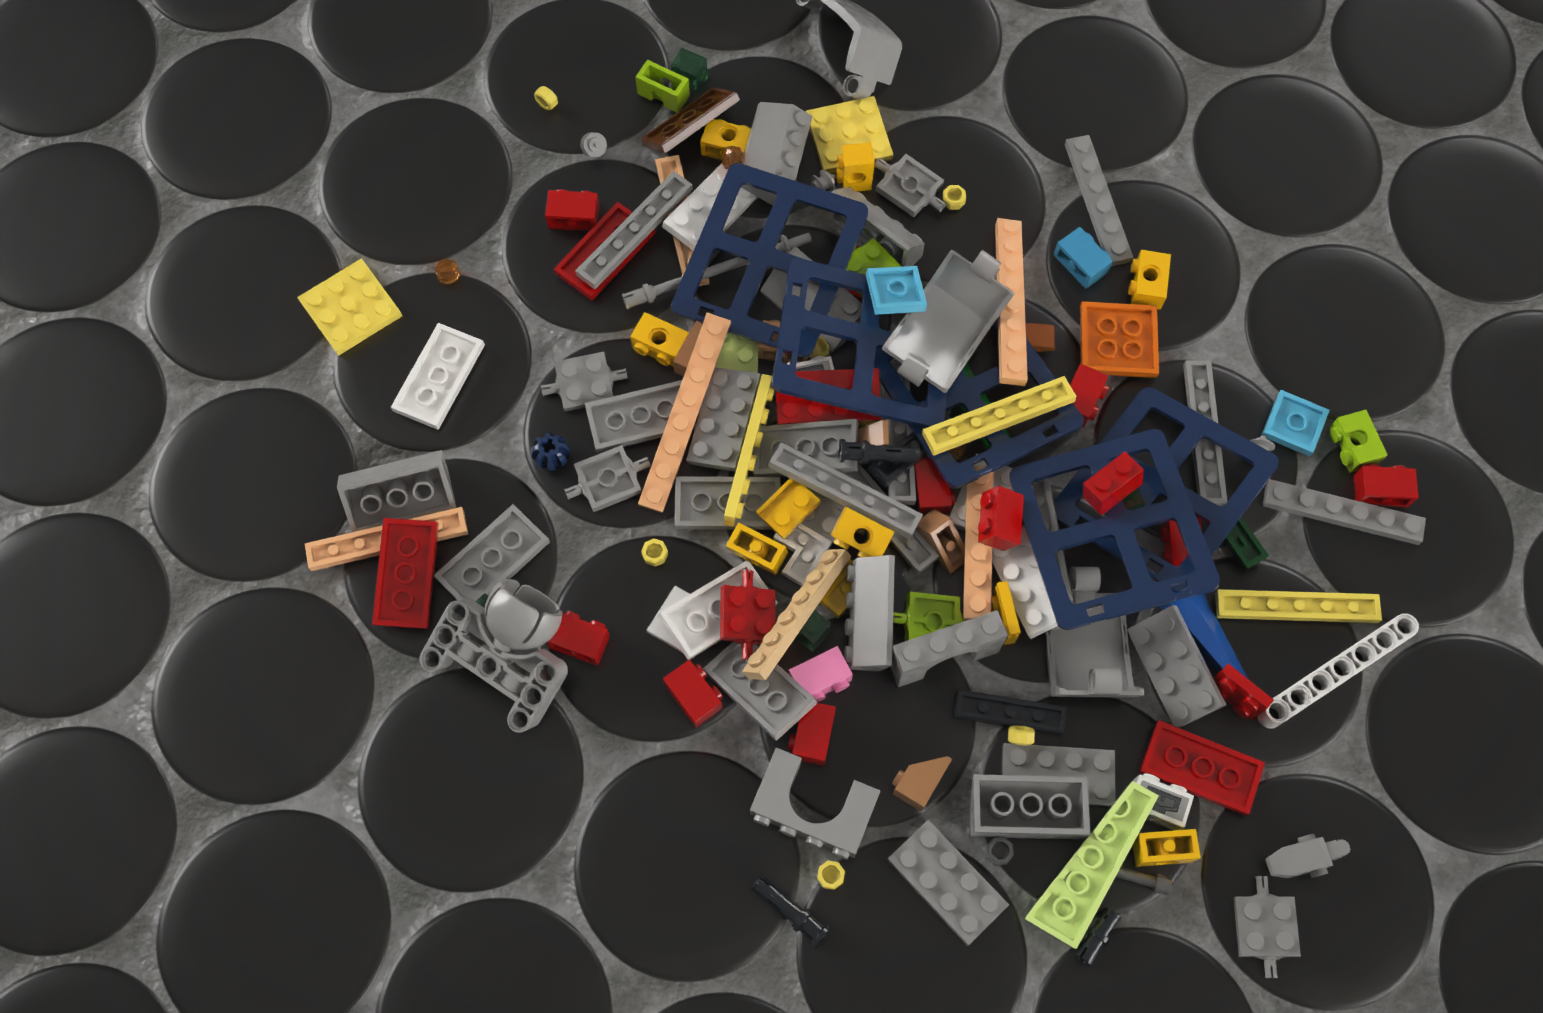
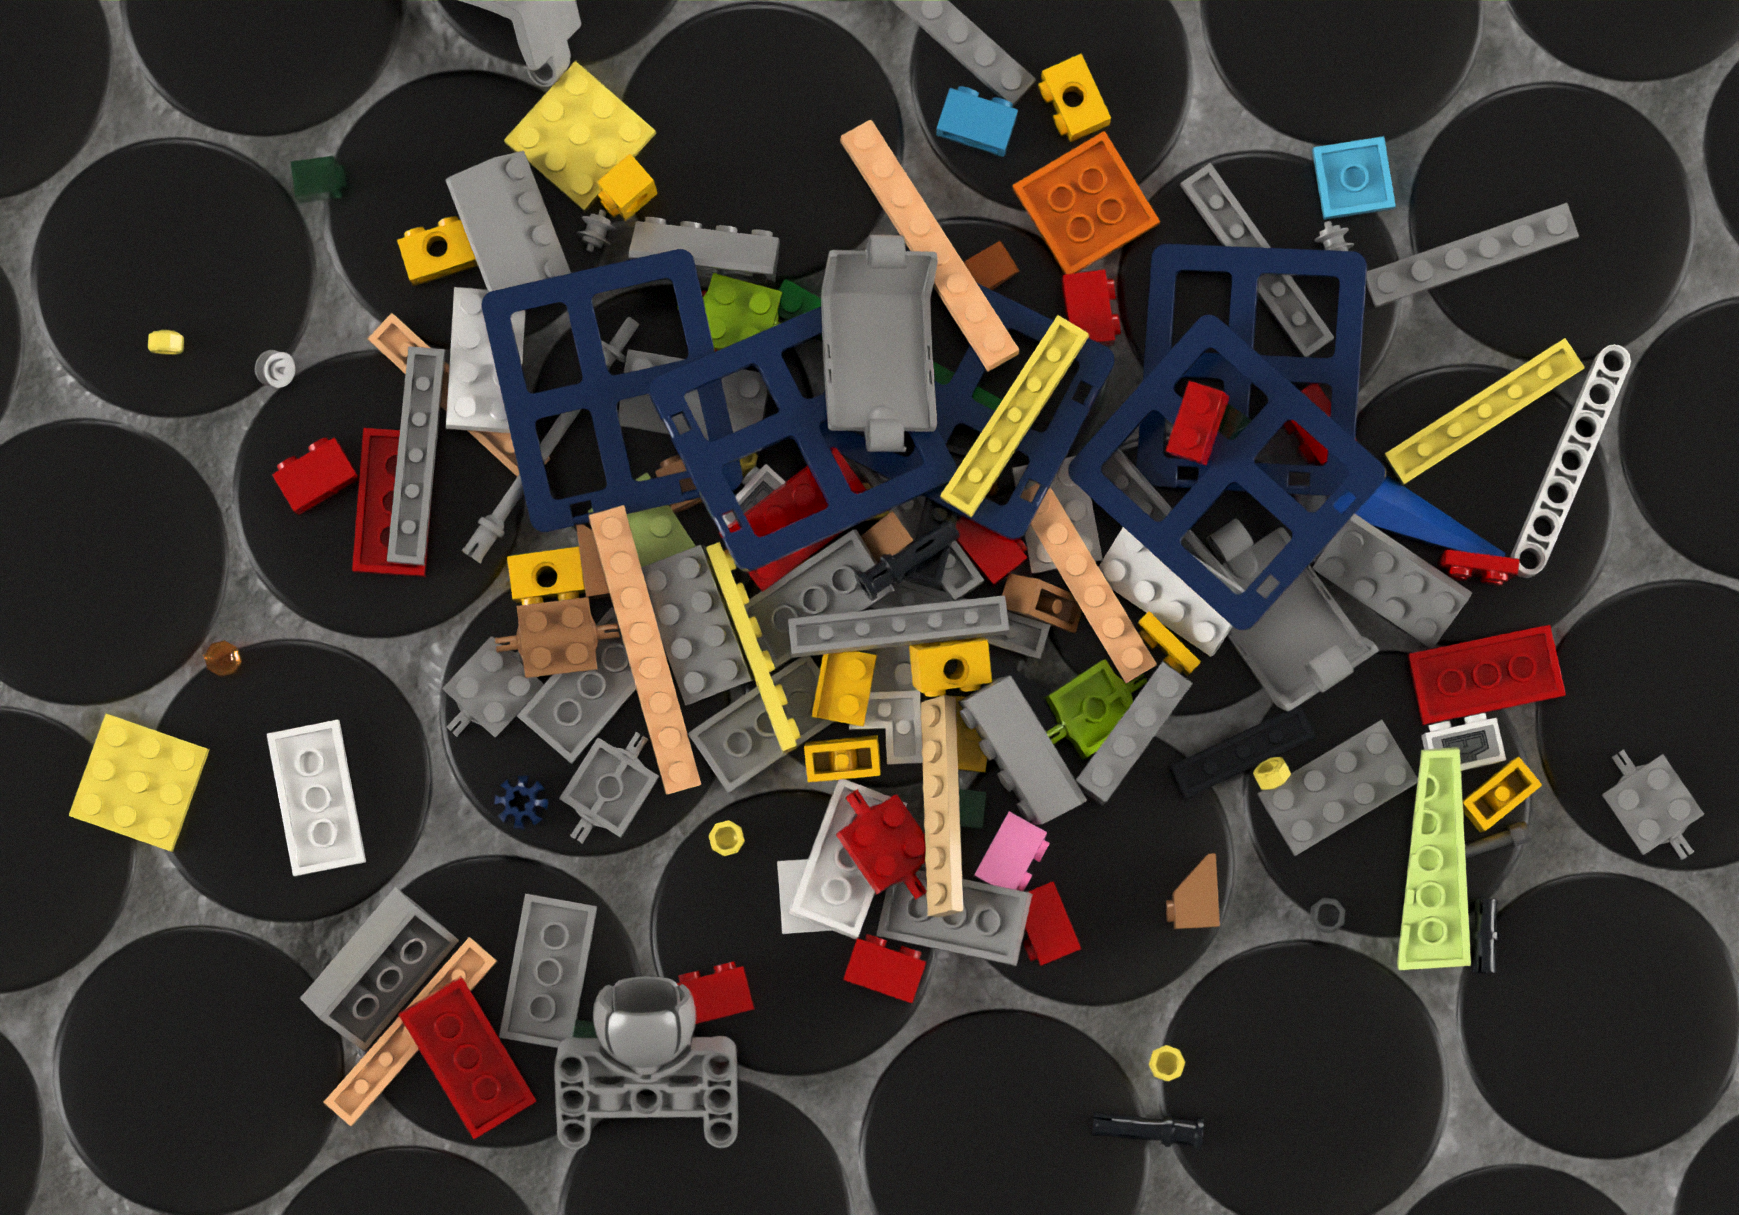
camera: 30 degrees left, 15 degrees up
(639, 373) = (557, 637): none -> medium nougat plate
(650, 85) = (287, 236): lime brick -> none
(689, 119) = (372, 255): reddish brown tile -> none
(731, 156) = (467, 279): clear orange tile -> none
(774, 806) = (1150, 1010): light grey arch -> none
(896, 290) = (795, 340): medium azure plate -> none
(909, 185) = (703, 160): light grey plate -> none
(948, 882) = (1293, 985): light grey plate -> none
(954, 197) = (768, 140): light yellow tile -> none
(1001, 518) = (1095, 541): red brick -> none
(1029, 807) = (1330, 849): light grey slope -> none
(1245, 545) = (1385, 376): dark green plate -> none
(1307, 856) = (1652, 701): light grey hinge -> none
(1360, 429) = (1431, 136): lime brick -> none
(1386, 485) = (1500, 192): red brick -> none

